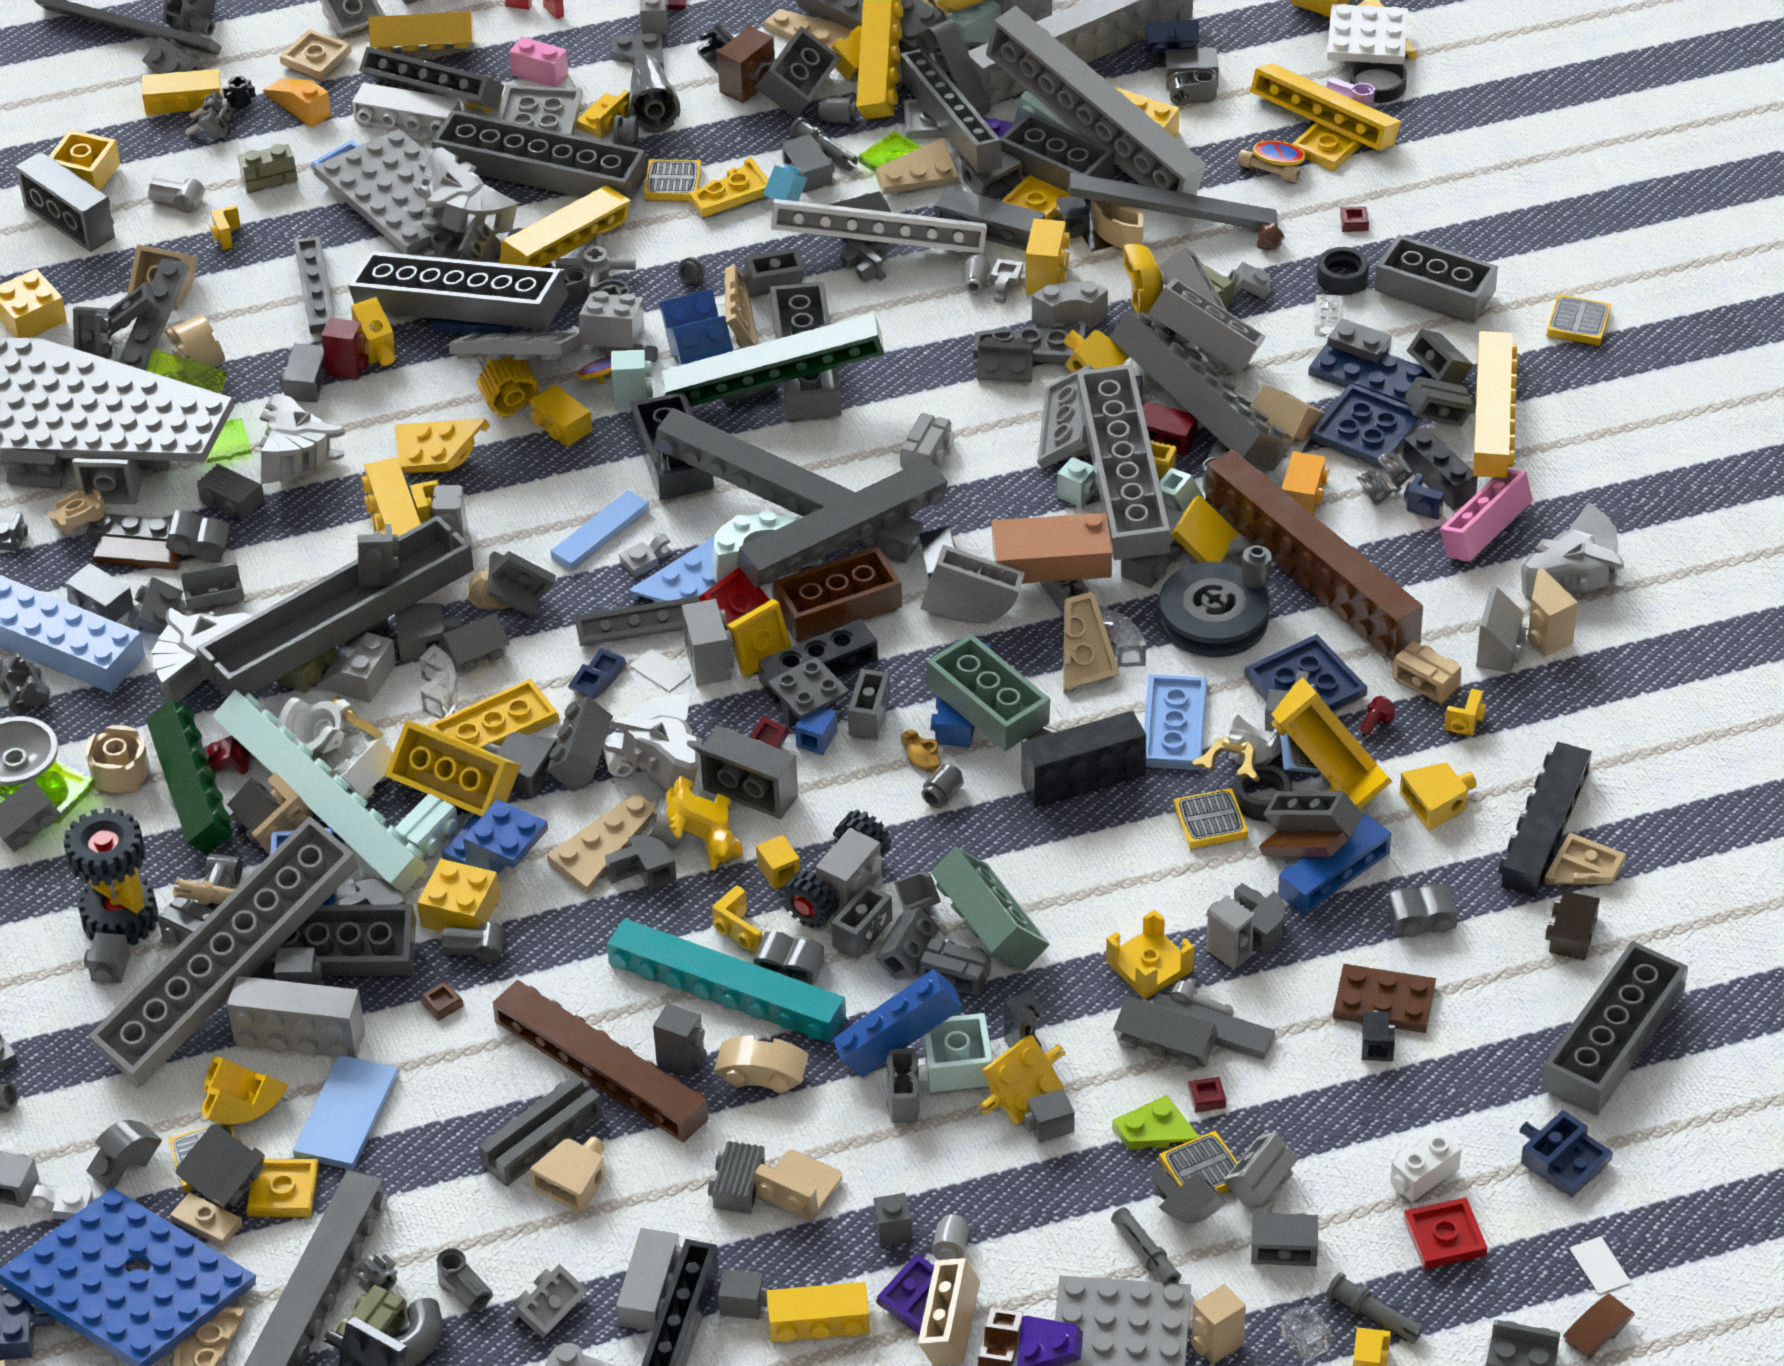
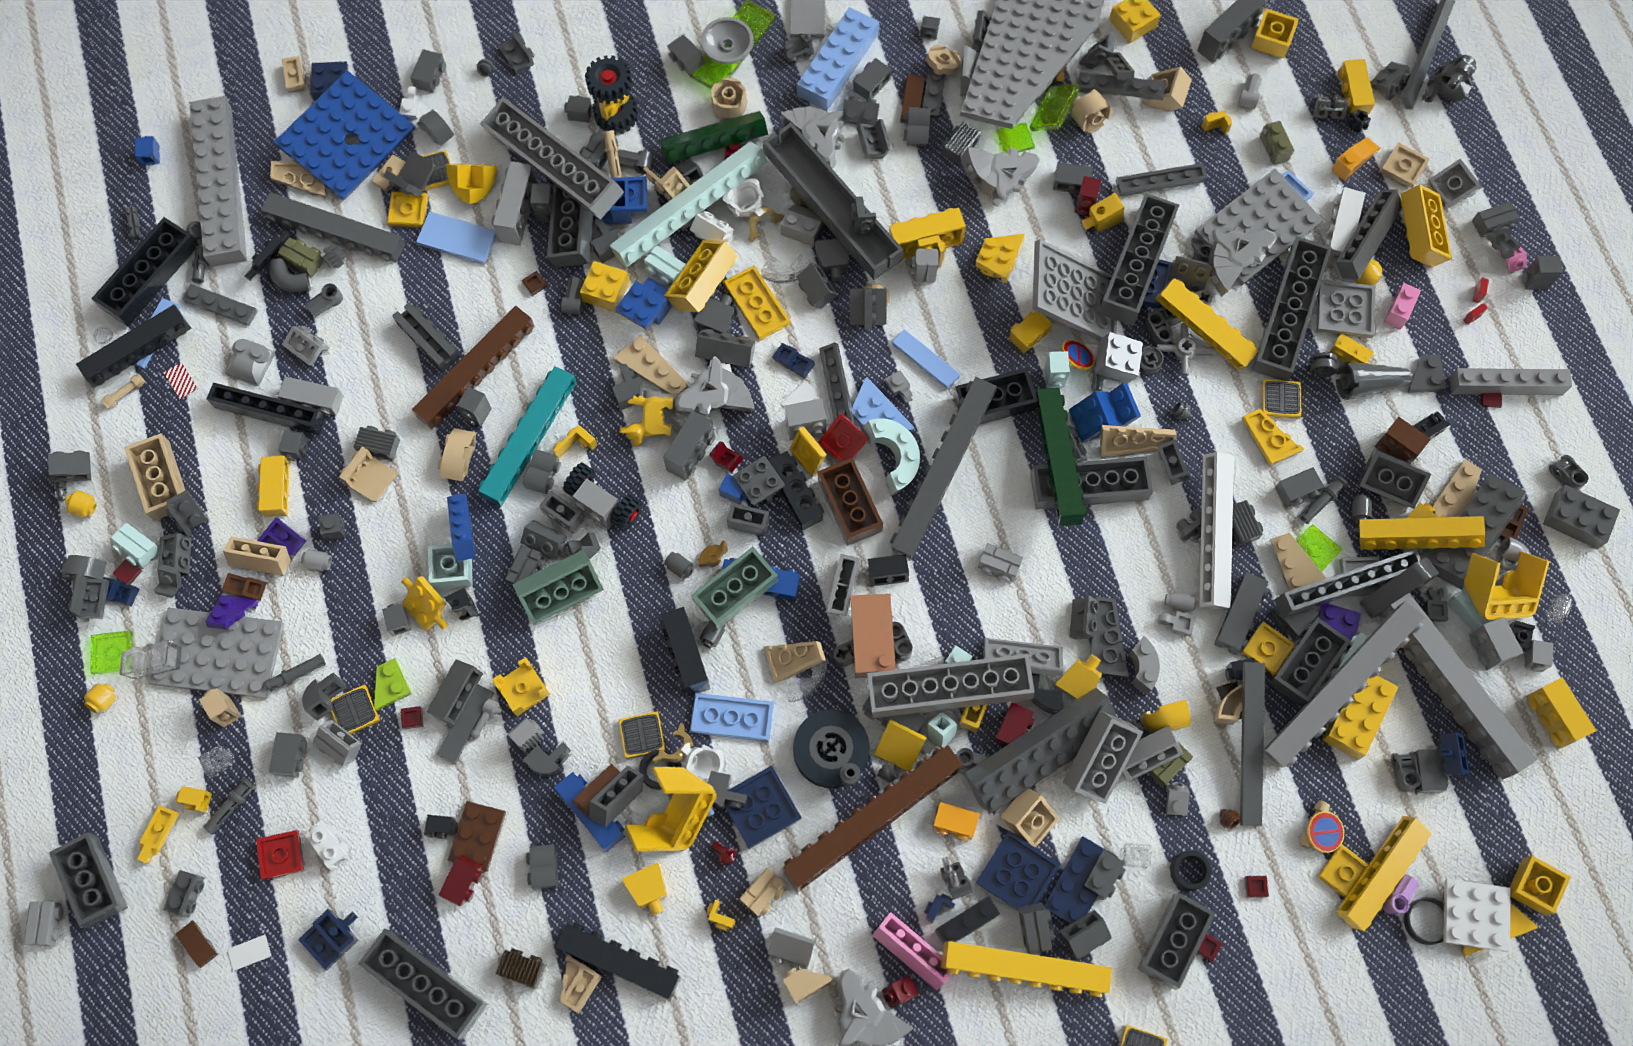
camera: 90 degrees right, 25 degrees up
(570, 1173) = (391, 354): tan torso -> none
(777, 861) = (621, 465): yellow brick -> none
(785, 183) = (1268, 470): medium azure brick -> none
(842, 523) = (898, 499): dark grey brick -> none
(903, 1085) = (424, 534): dark grey brick -> none
(1046, 254) = (1189, 648): yellow brick -> none
(1456, 995) = (461, 880): none -> dark red brick
(1538, 528) = (900, 992): none -> dark red bracket

